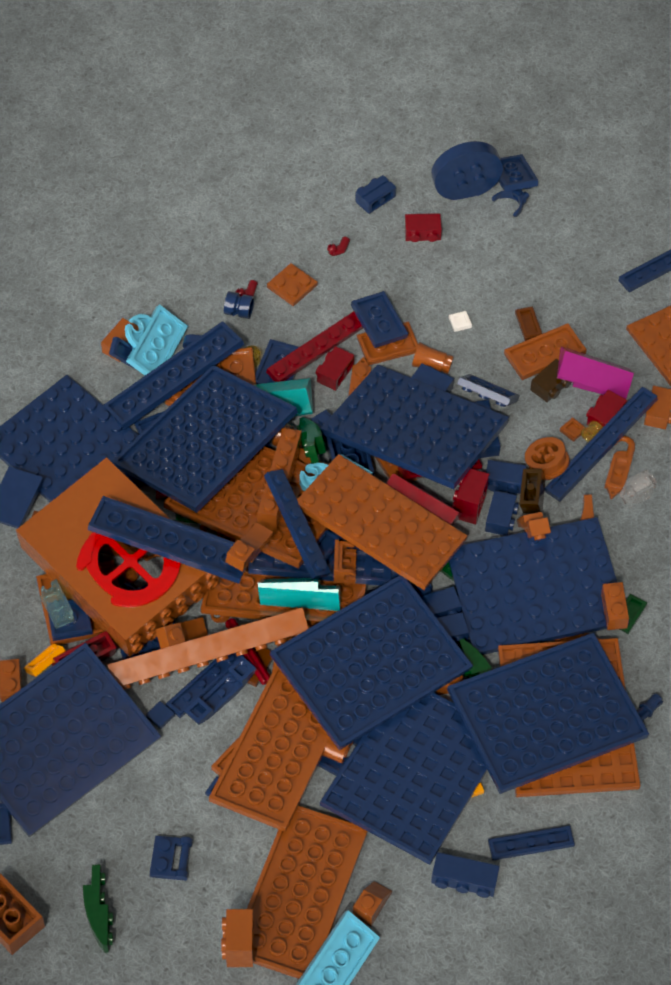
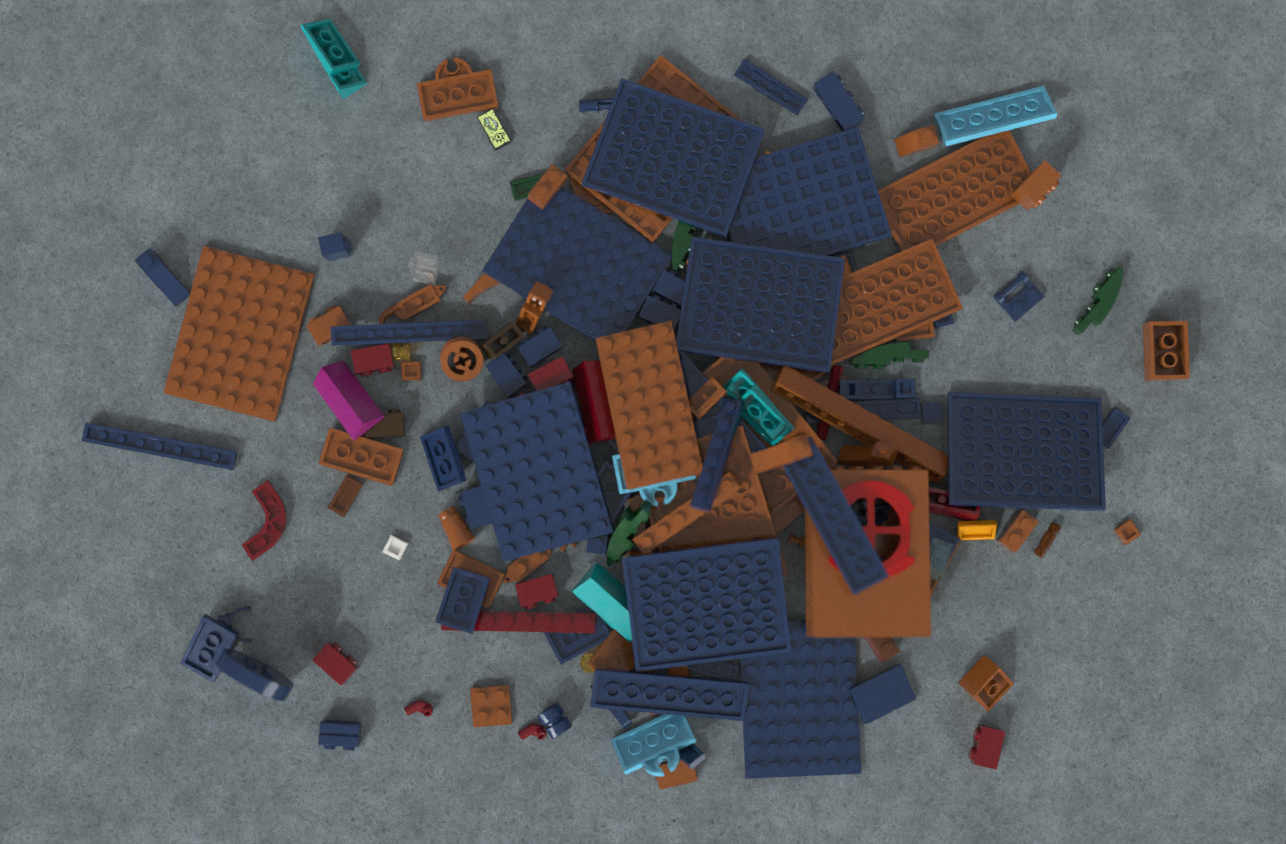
camera: 140 degrees left, 30 degrees up
(231, 730) = (881, 355): none -> dark green slope
(558, 273) = (274, 521): none -> dark red plate

